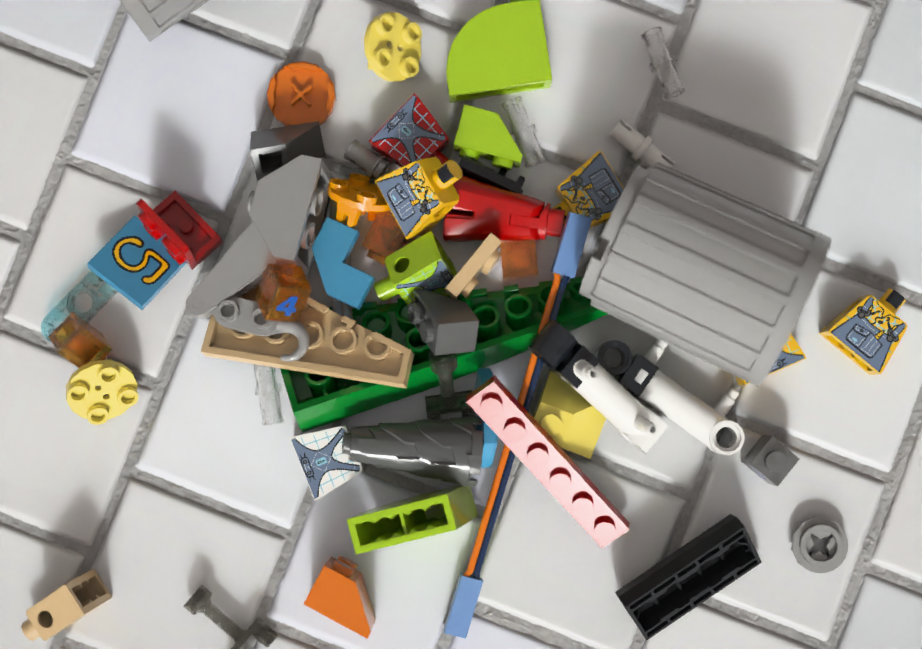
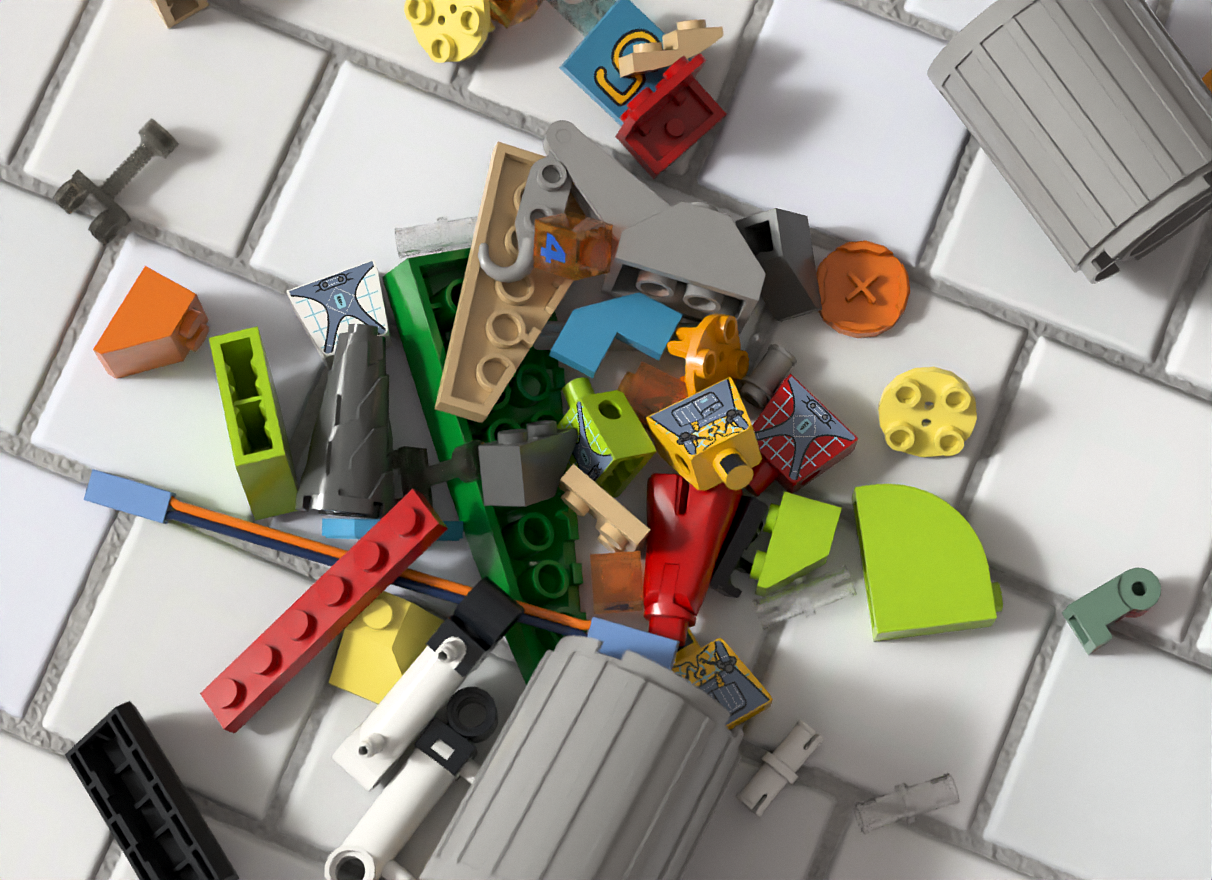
camera: 90 degrees right, 10 degrees down
(128, 225) = (686, 41): none -> tan slope

